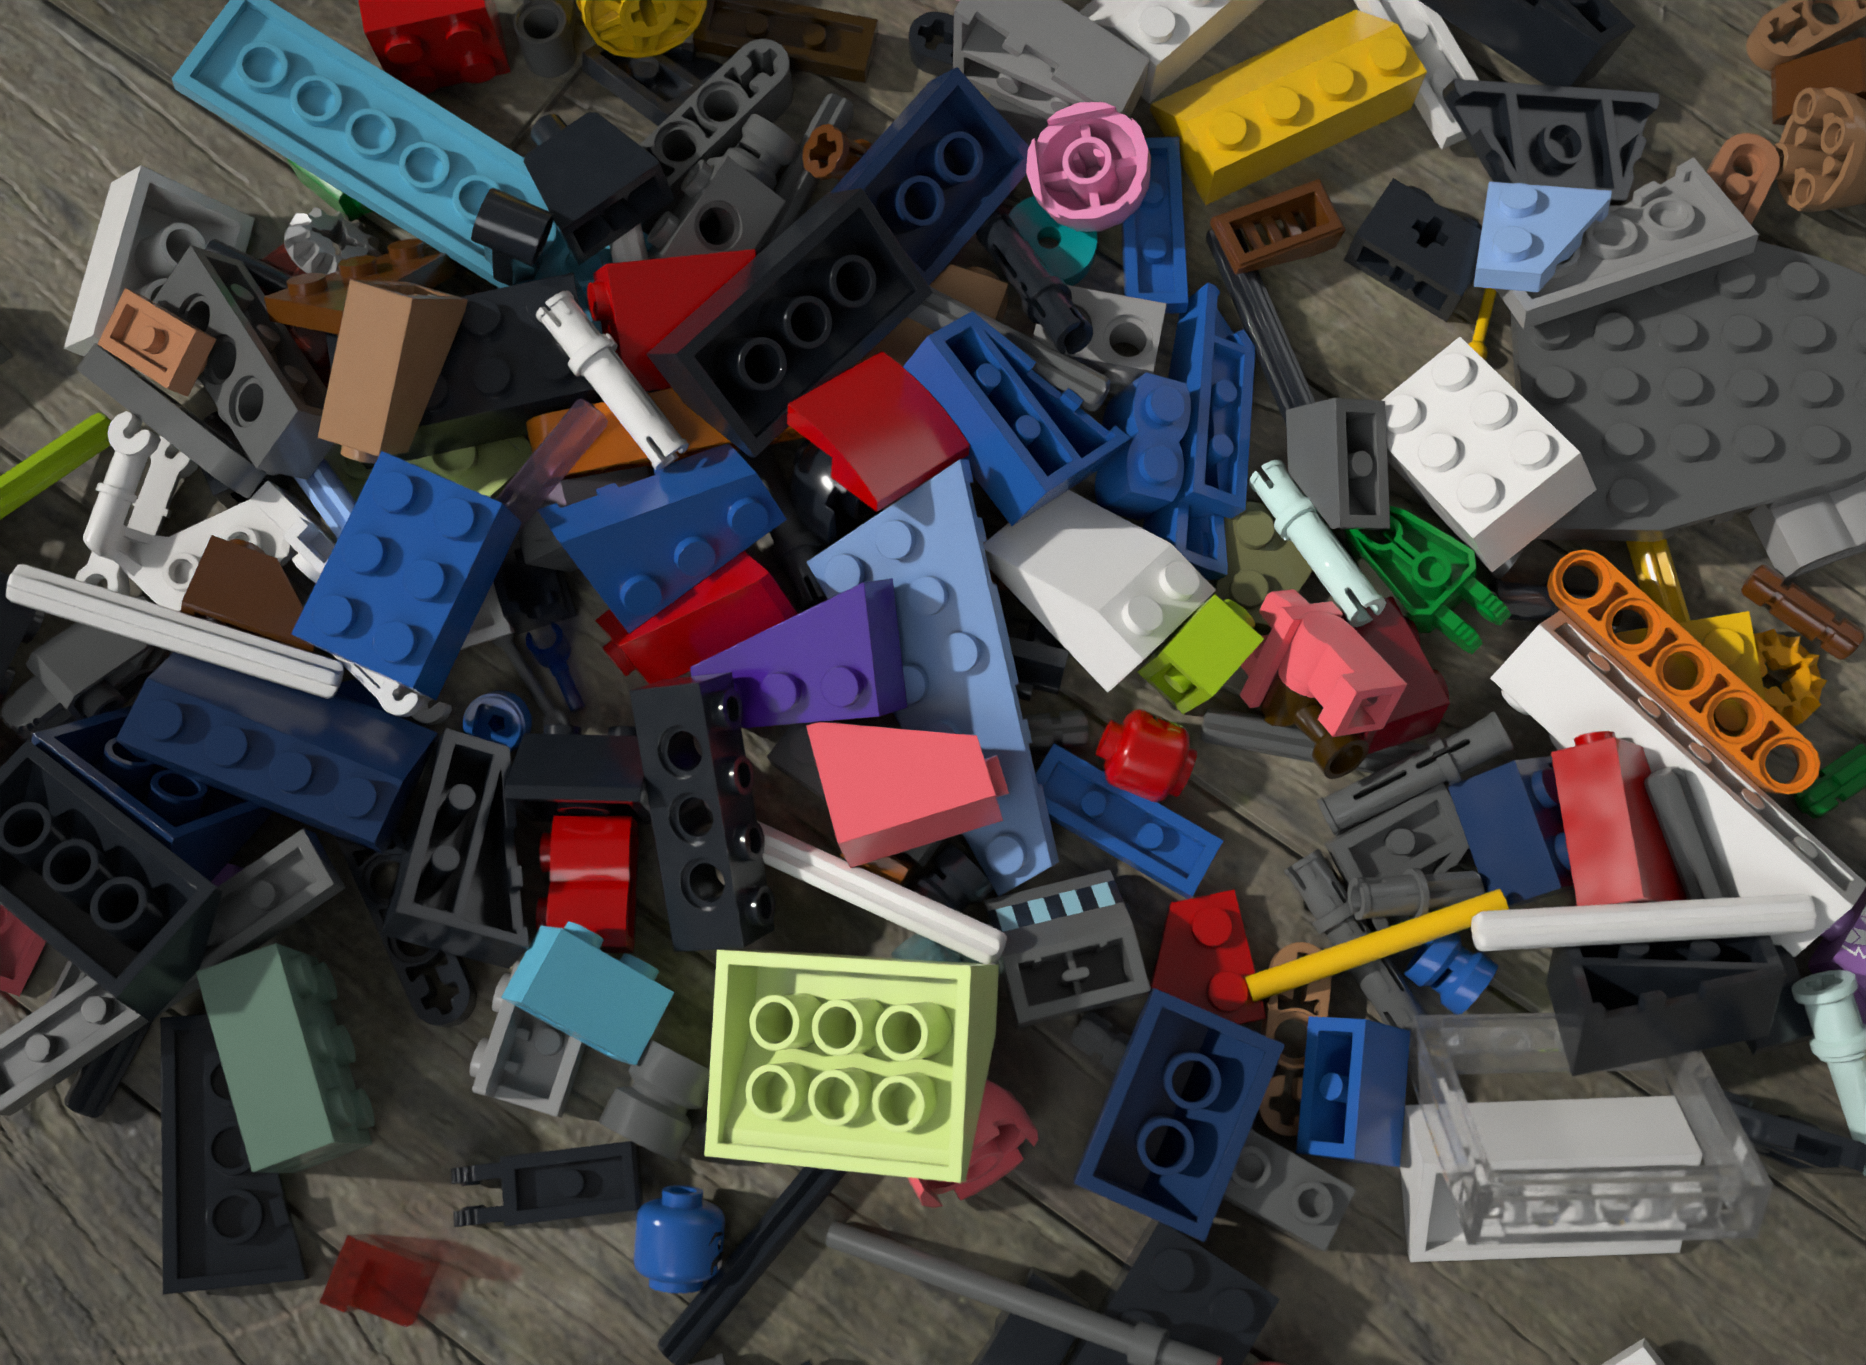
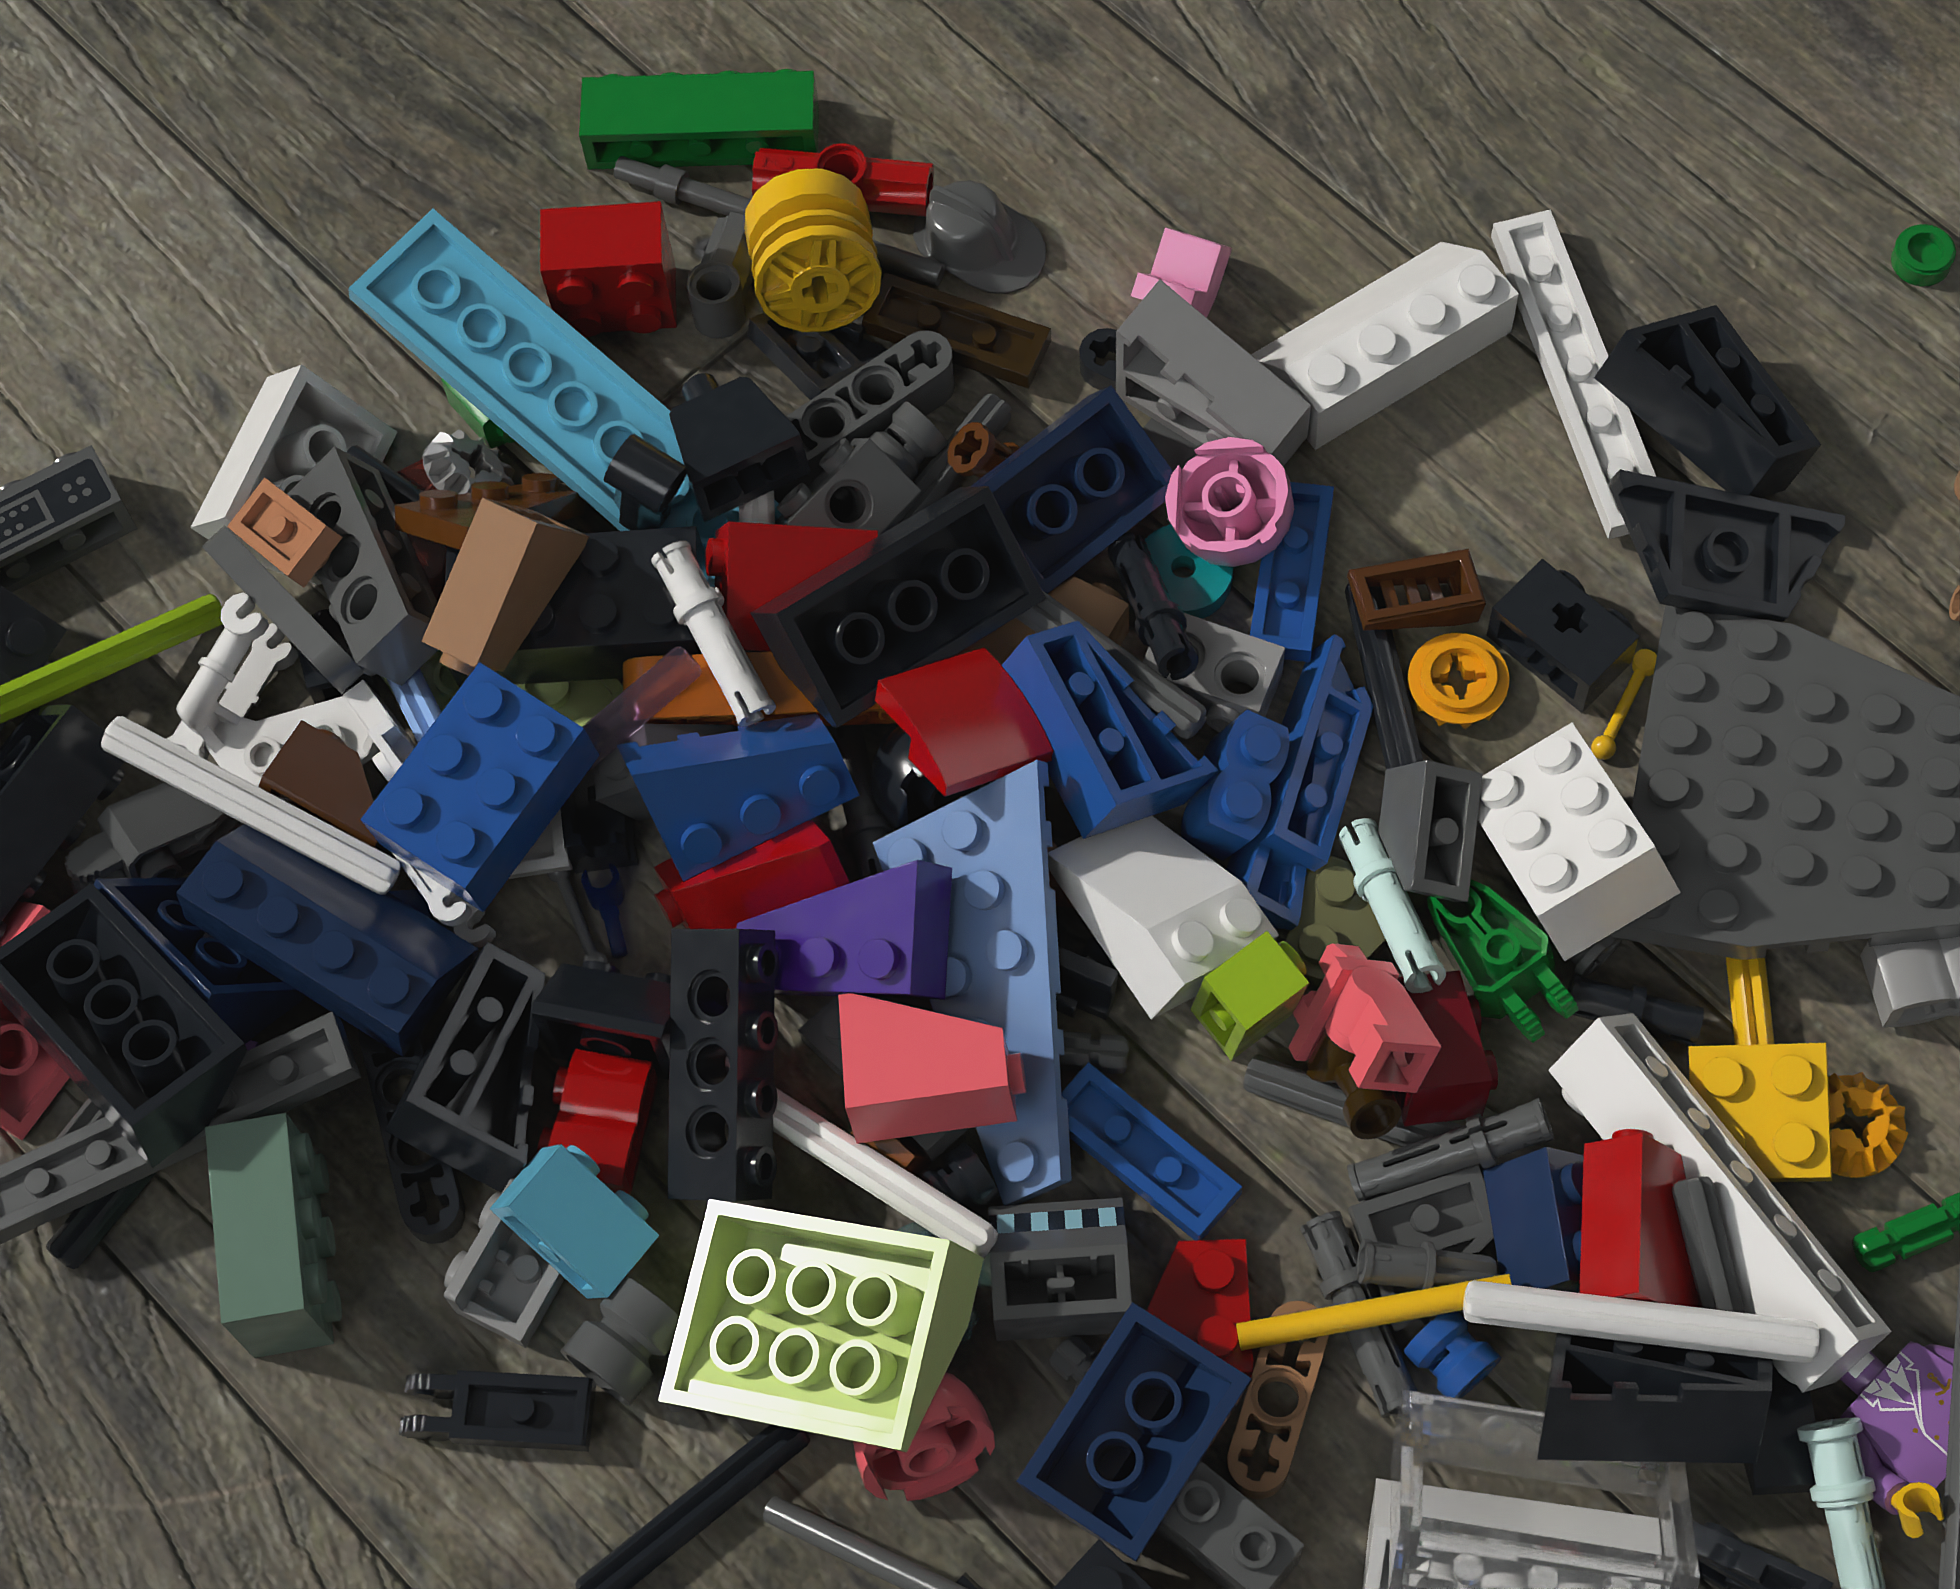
camera: 15 degrees right, 10 degrees down
(217, 1214) = (178, 1361): black wing -> none
(379, 1279) = (316, 1470): clear red panel -> none
(498, 718) = (540, 946): blue tile -> none
(679, 1240) = (617, 1482): blue head -> none
(1147, 755) = (1180, 1089): red head -> none
(1291, 102) = (1457, 471): yellow slope -> none
(1340, 287) = (1476, 661): none -> light orange gear
(1353, 1091) = (1325, 1454): blue brick -> none
(1532, 231) = (1669, 630): light blue wing -> none
(1649, 241) = (1790, 661): light grey wing -> none
(1713, 679) = (1722, 1058): orange beam -> none
(1757, 159) = (1902, 627): nougat plate -> none
(1803, 612) = (1898, 1061): reddish brown axle -> none

